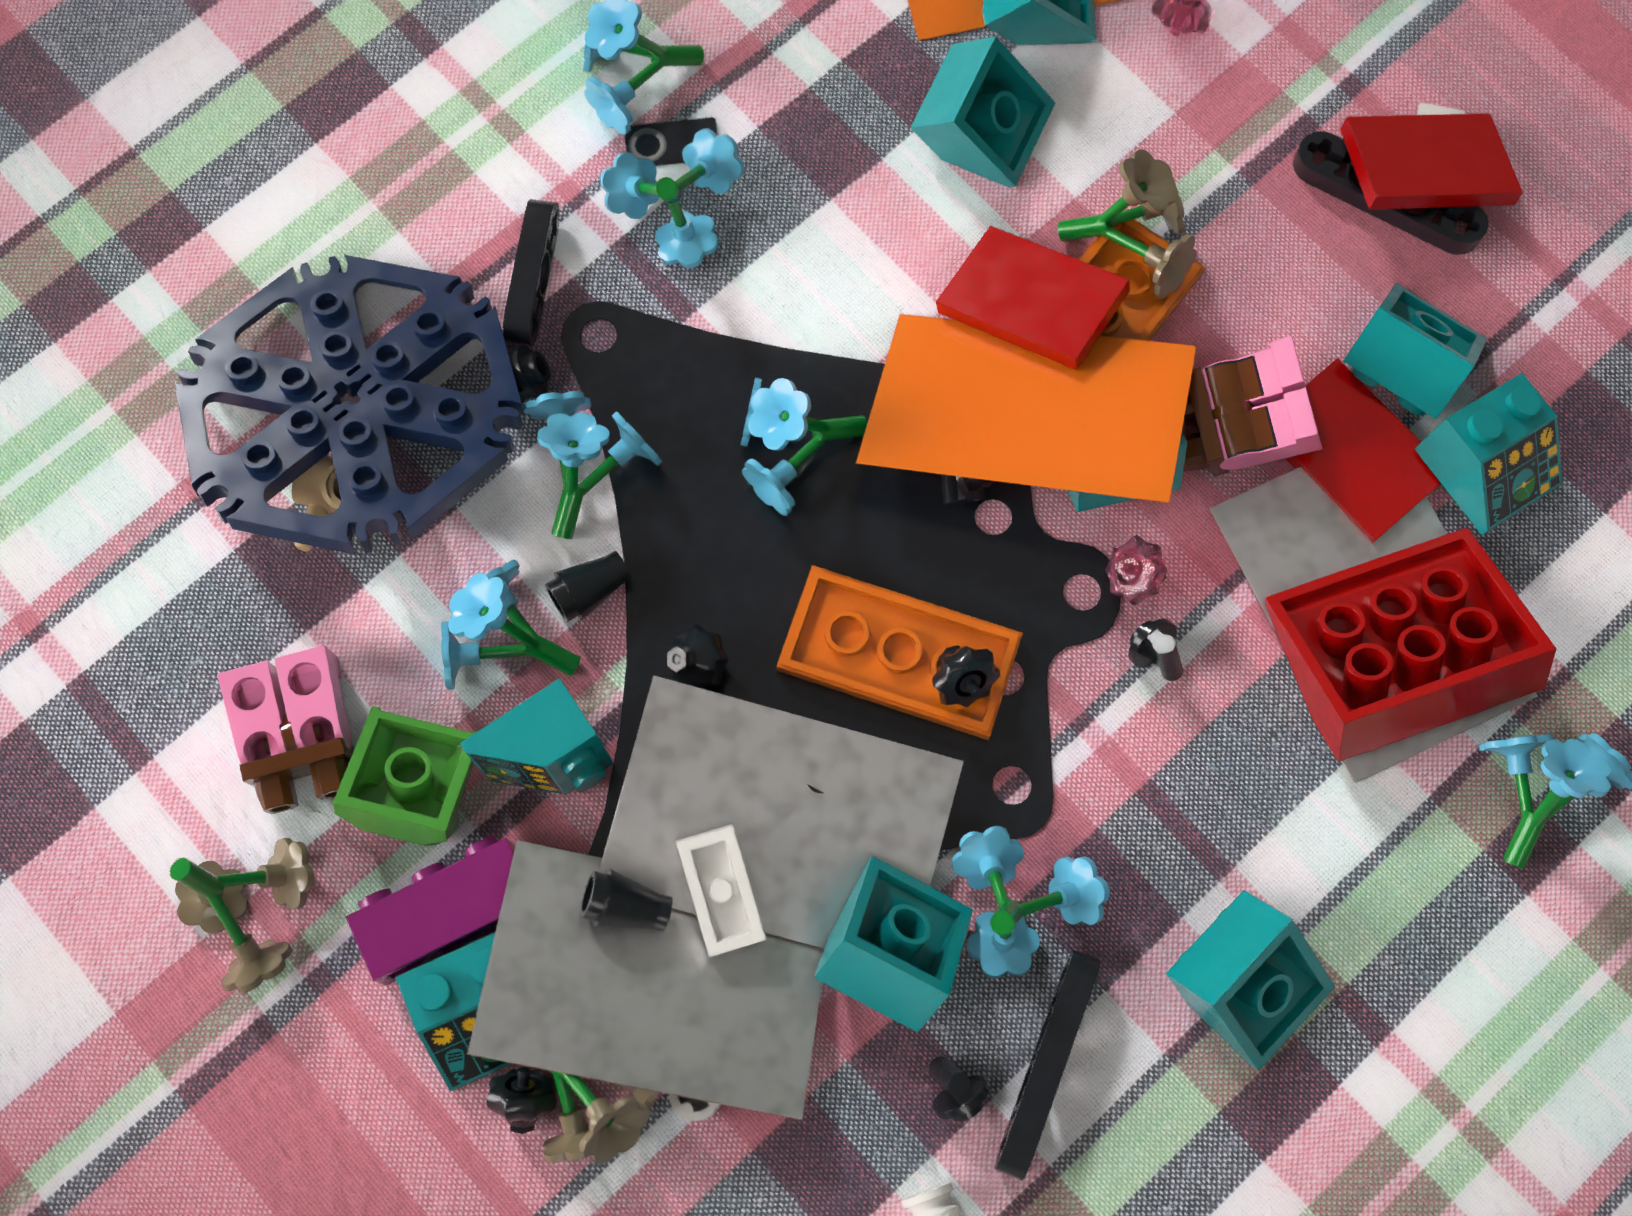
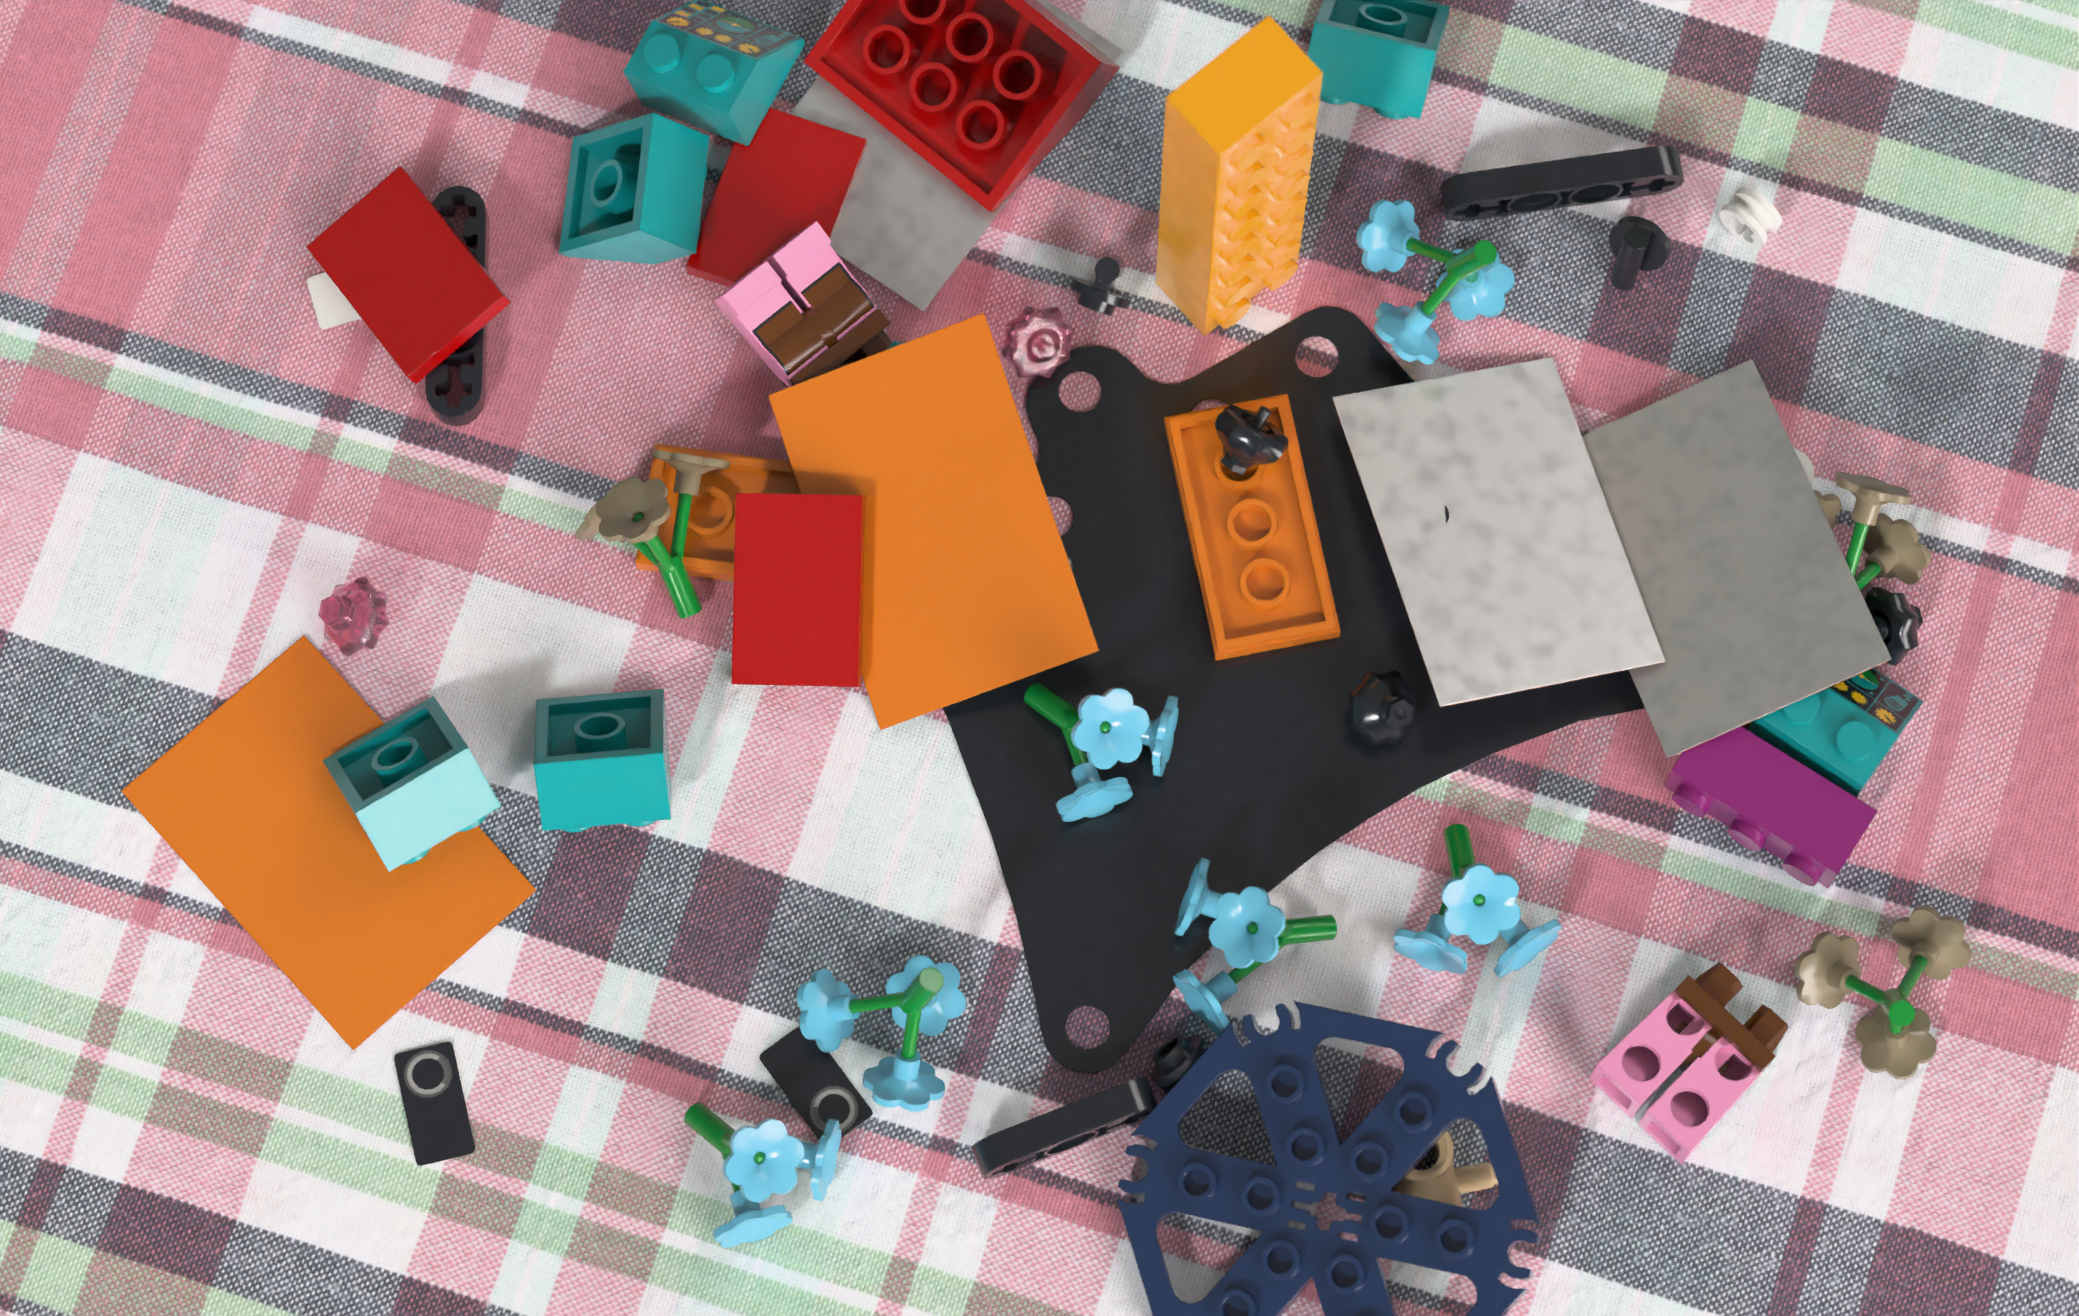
camera: 120 degrees left, 0 degrees up
(405, 779) = (1668, 909): bright green slope -> none
(541, 745) = (1563, 786): teal slope -> none
(585, 586) = (1371, 862): black cone -> none
(623, 903) = (1666, 618): black cone -> none
(720, 890) = (1597, 540): white plate -> none
(895, 945) = (1542, 365): teal slope -> none
(1168, 695) = (1236, 176): none -> light orange brick

